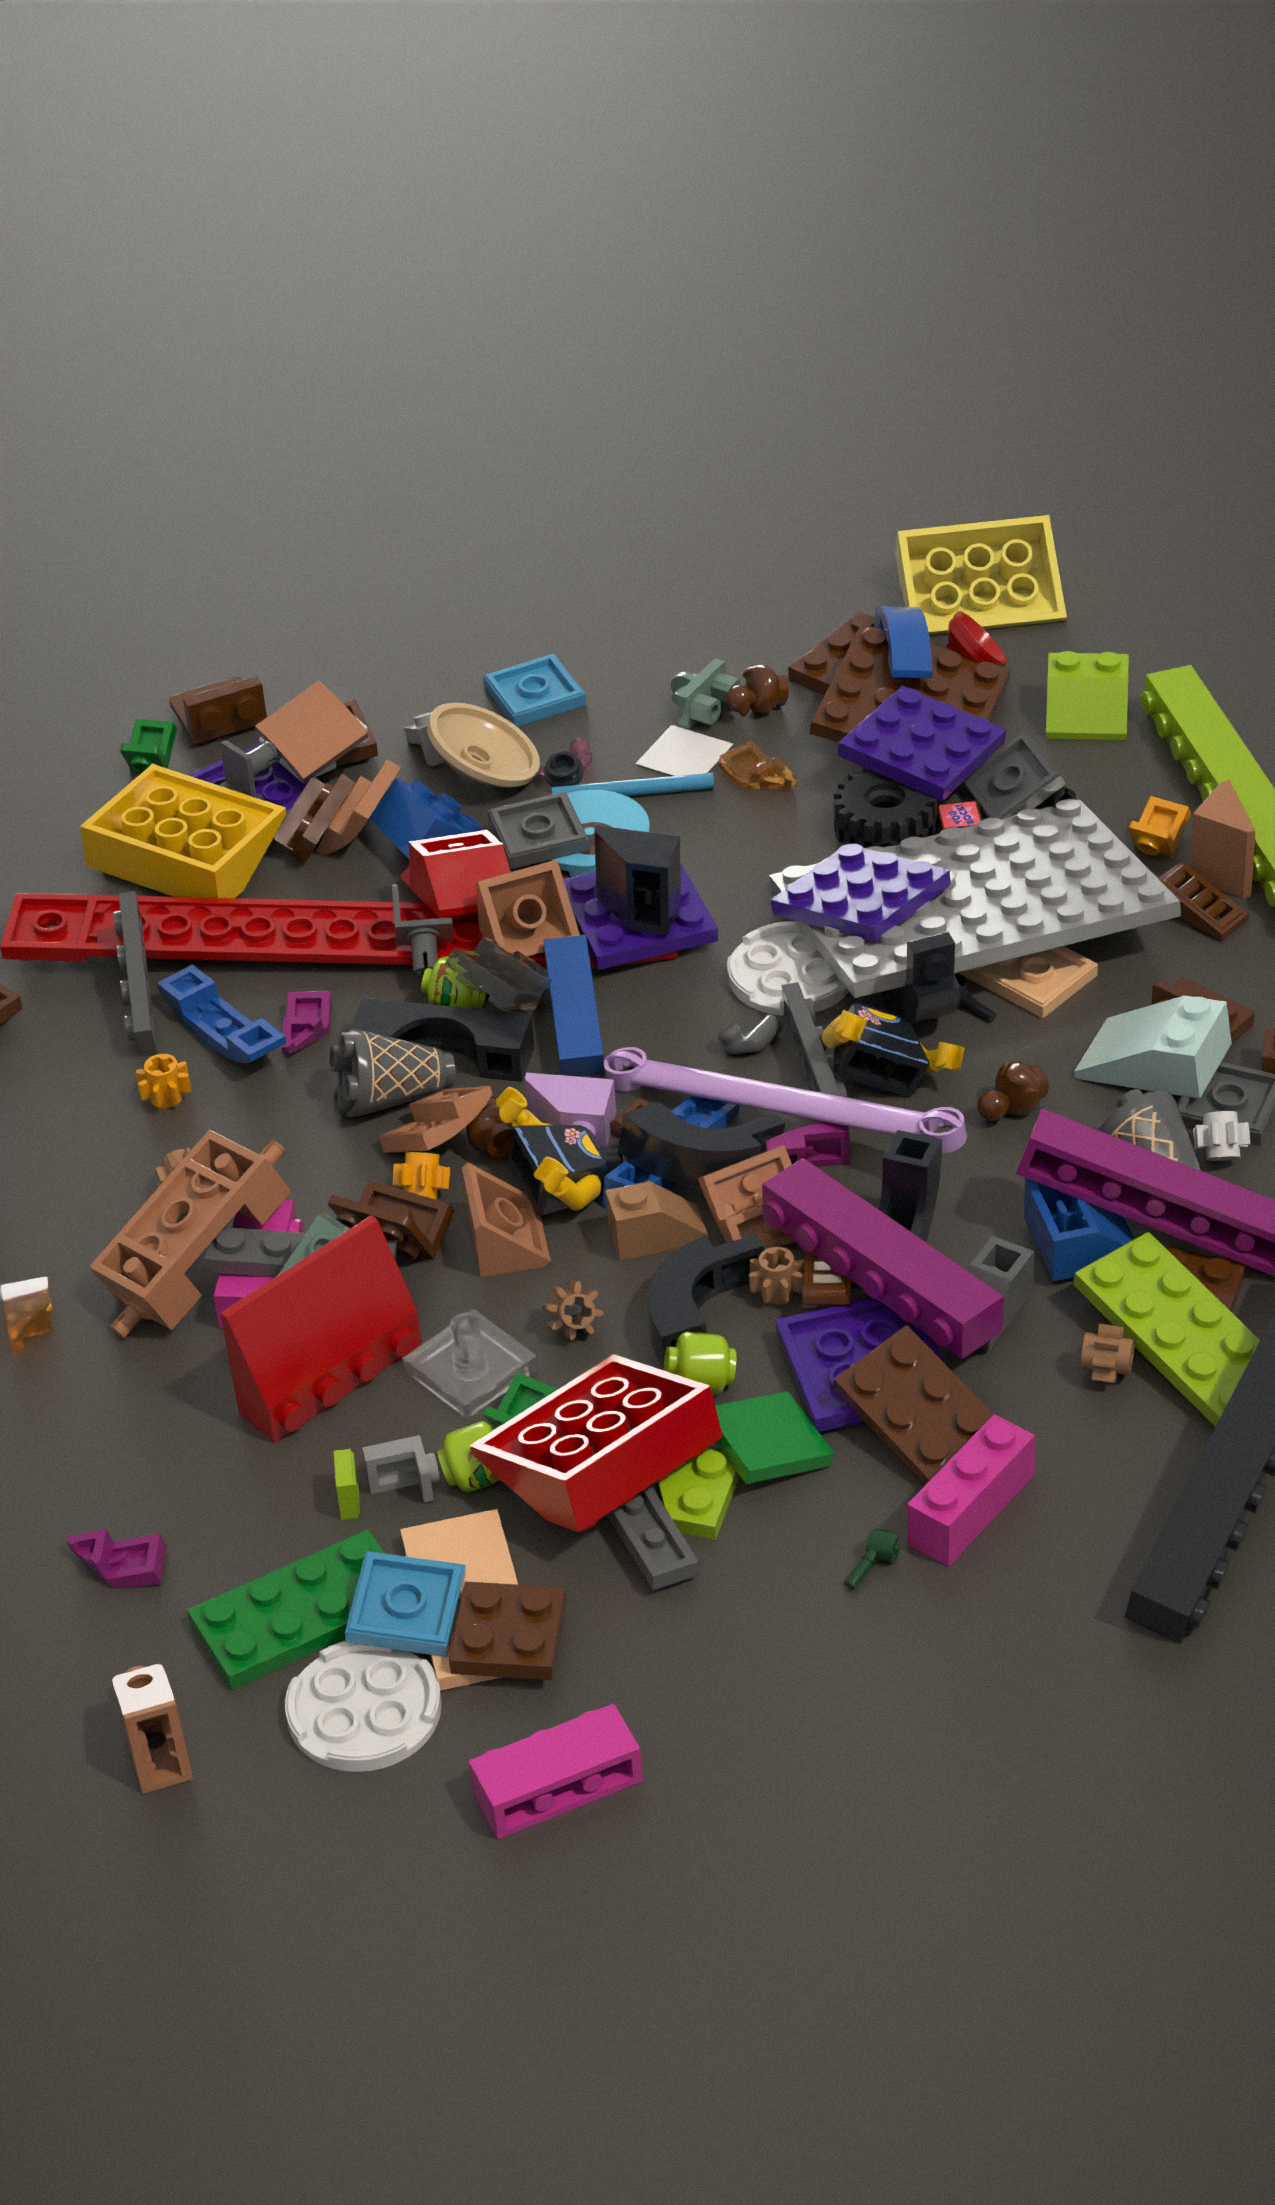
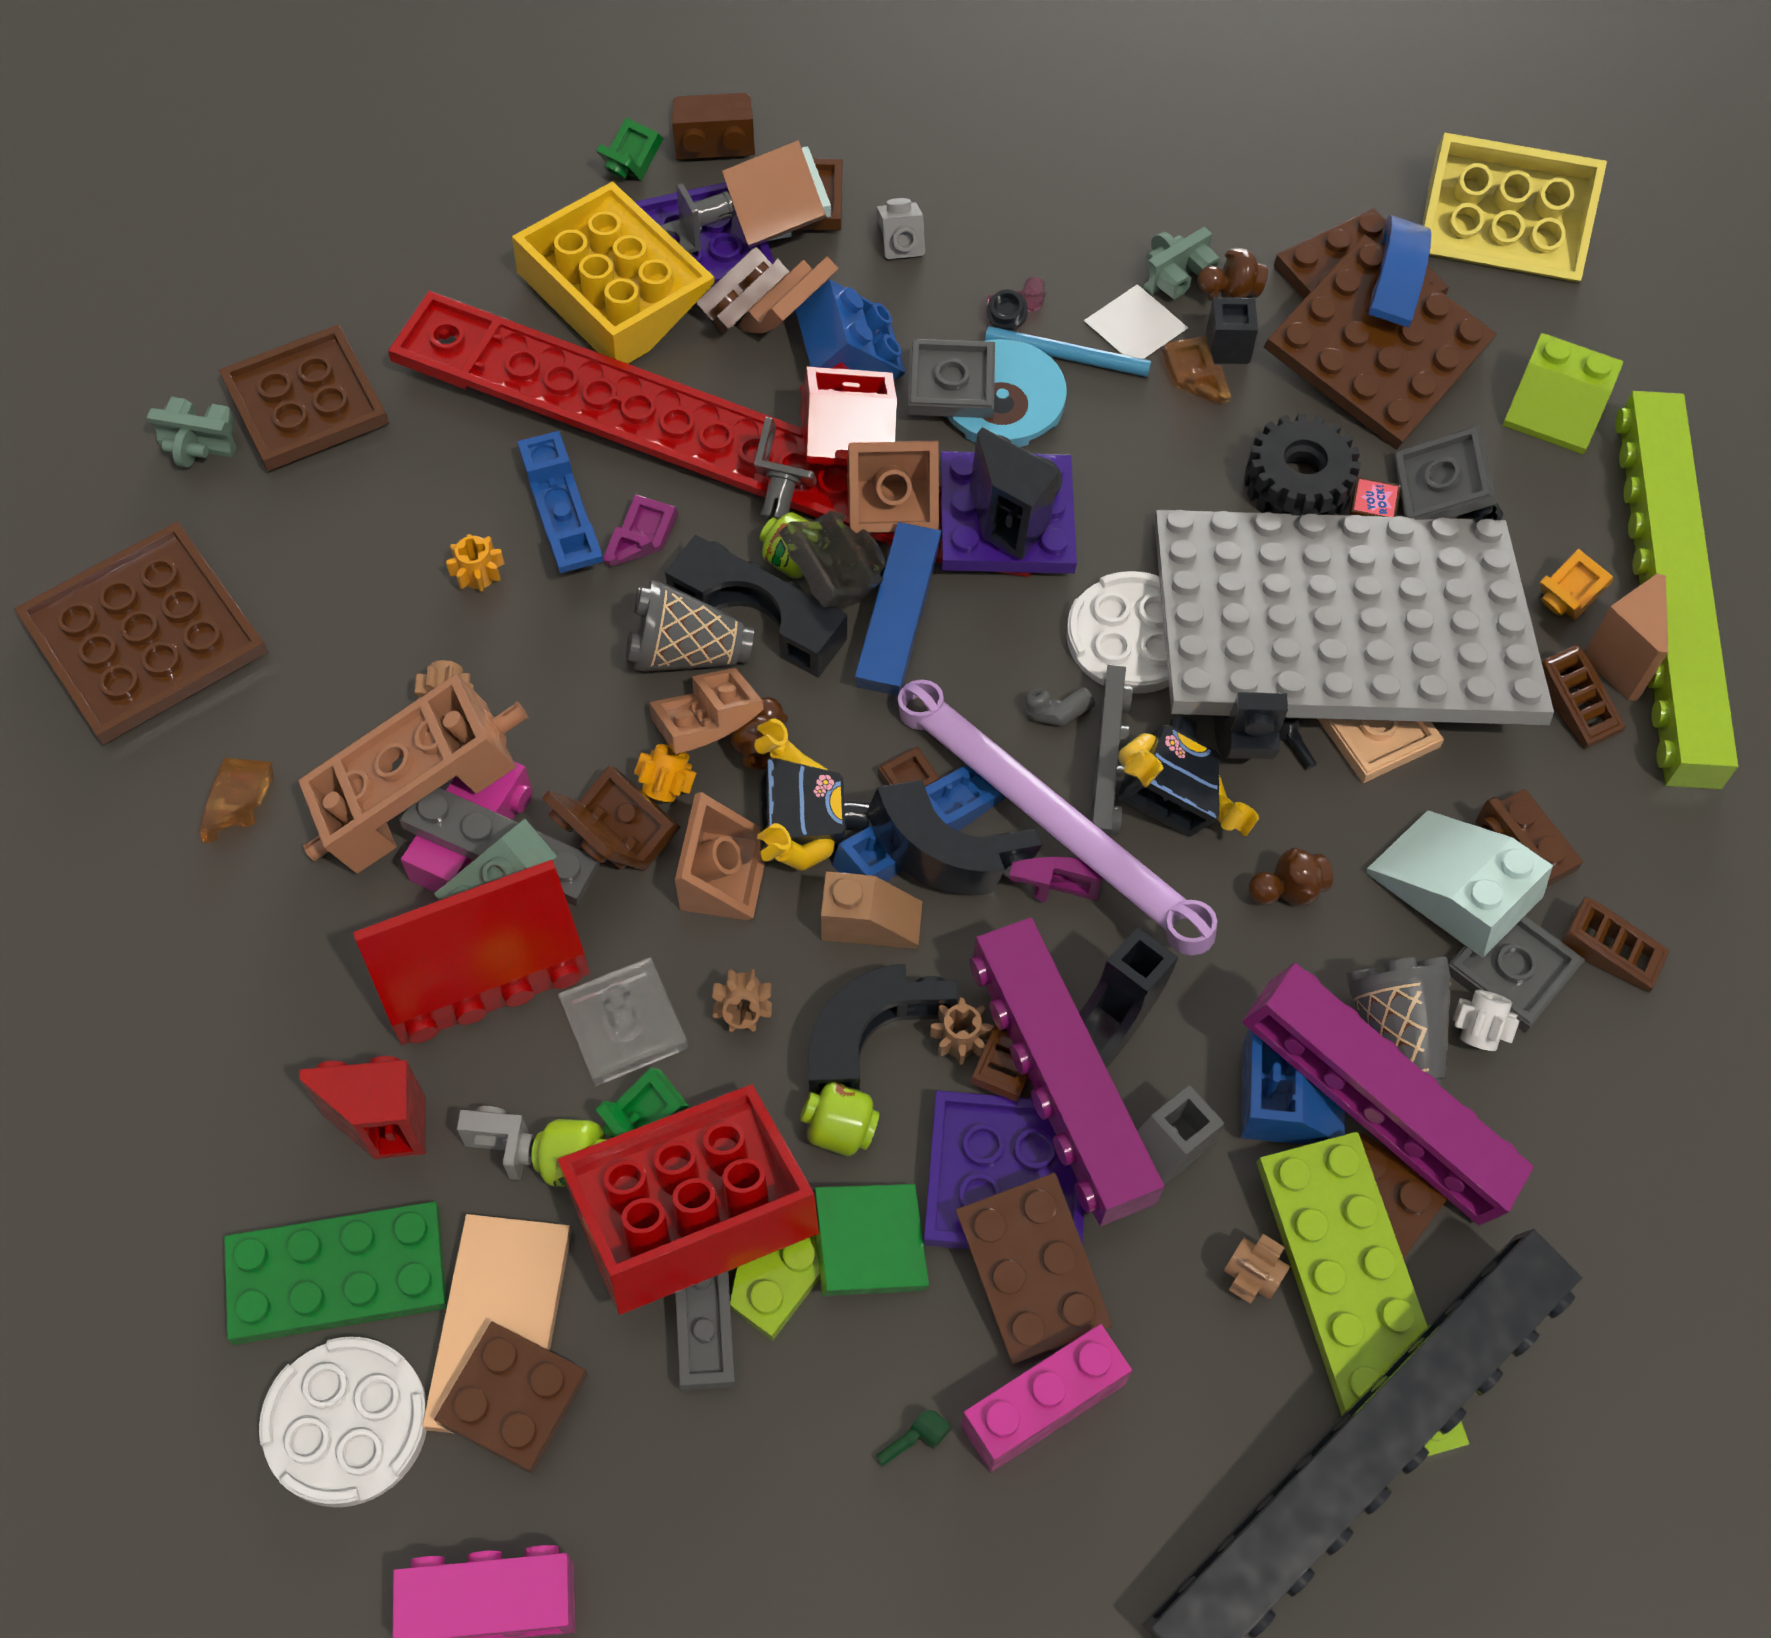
camera: 15 degrees right, 20 degrees up
(122, 1562) = (194, 1142): magenta slope -> none
(136, 988) = (499, 416): dark grey plate -> none
(148, 1707) = (119, 1380): nougat torso -> none
(277, 1470) = (372, 1104): none -> red slope
(347, 1484) = (436, 1138): lime tile -> none
(405, 1603) = (425, 1324): dark azure tile -> none
(482, 745) = (937, 258): tan dish -> none
(534, 690) = (1021, 200): dark azure tile -> none
(573, 1102) = (849, 739): lavender slope -> none
(737, 1199) = (967, 910): nougat slope -> none
(775, 727) = (1232, 330): none -> black panel
(861, 892) = (1231, 579): dark purple plate -> none
(922, 742) = (1367, 405): dark purple plate -> none
(973, 641) = (1473, 288): red piece -> none

